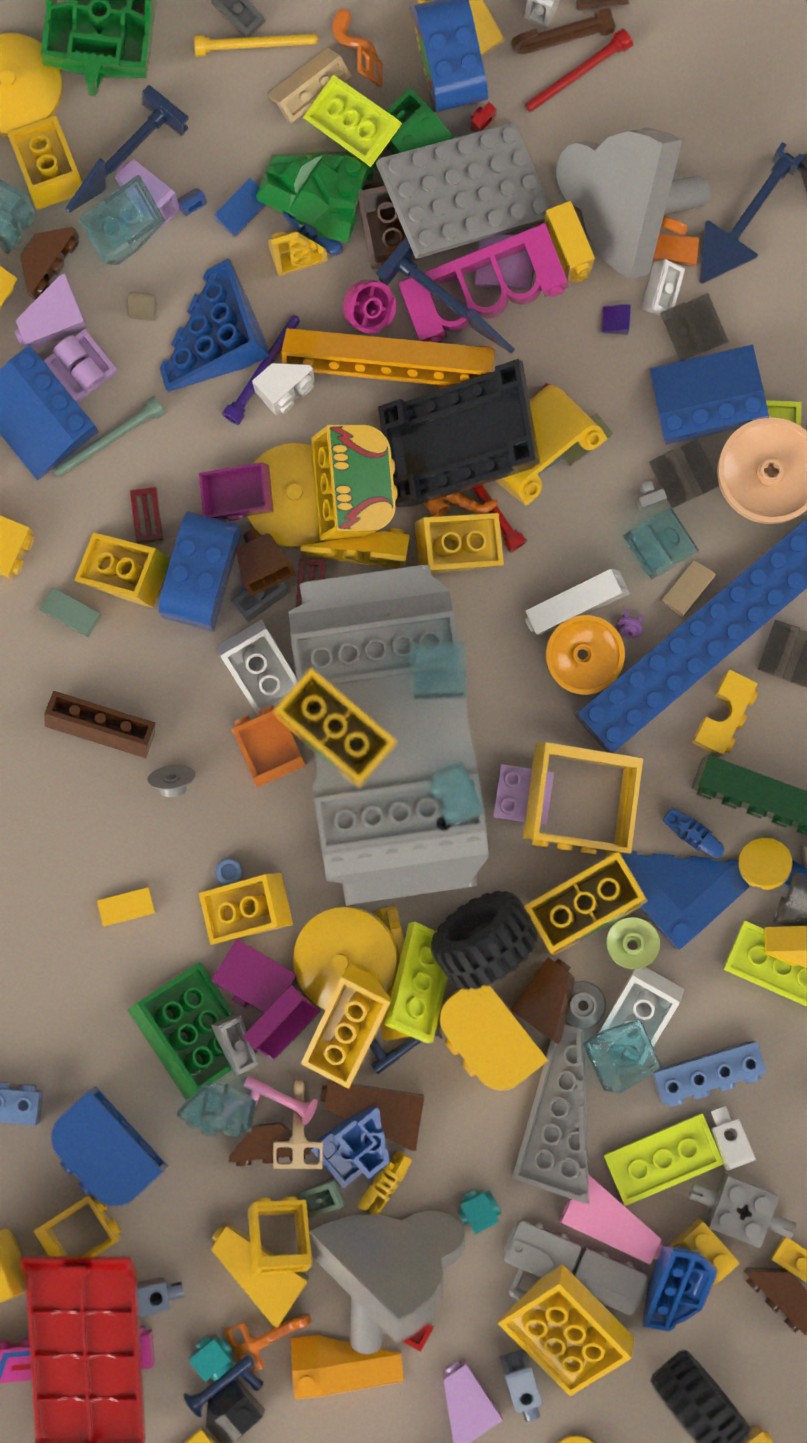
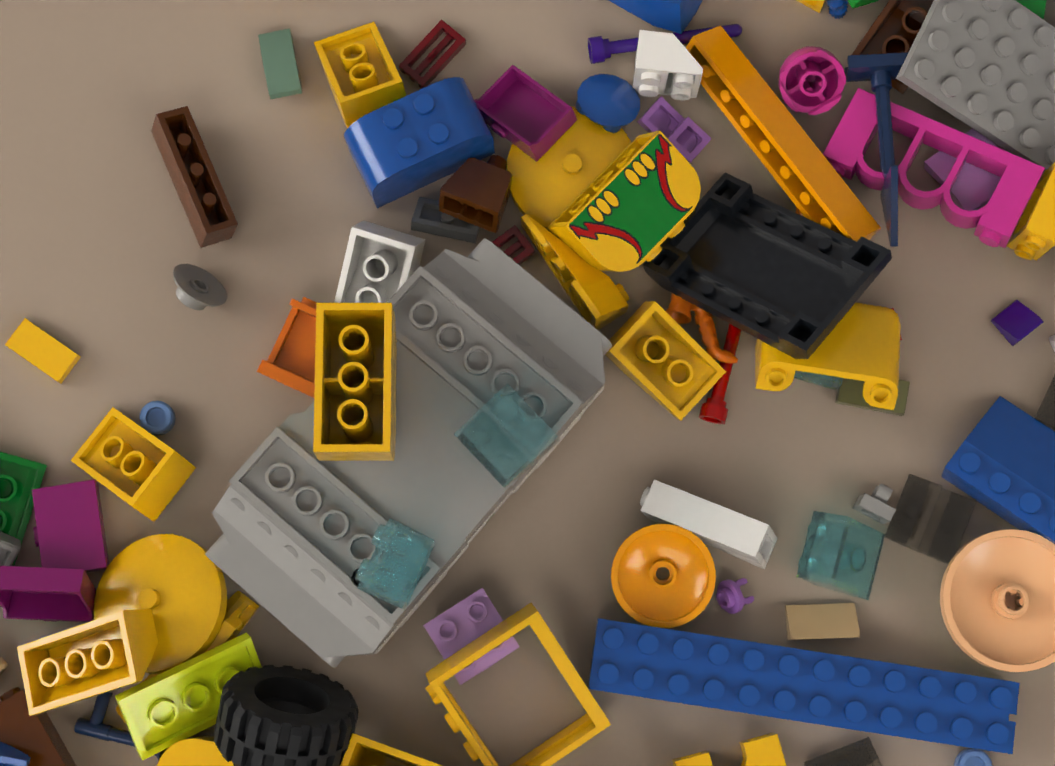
camera: 55 degrees right, 5 degrees down
(272, 436) = (608, 101): none -> blue dish
(324, 412) = (681, 132): none -> medium lavender slope

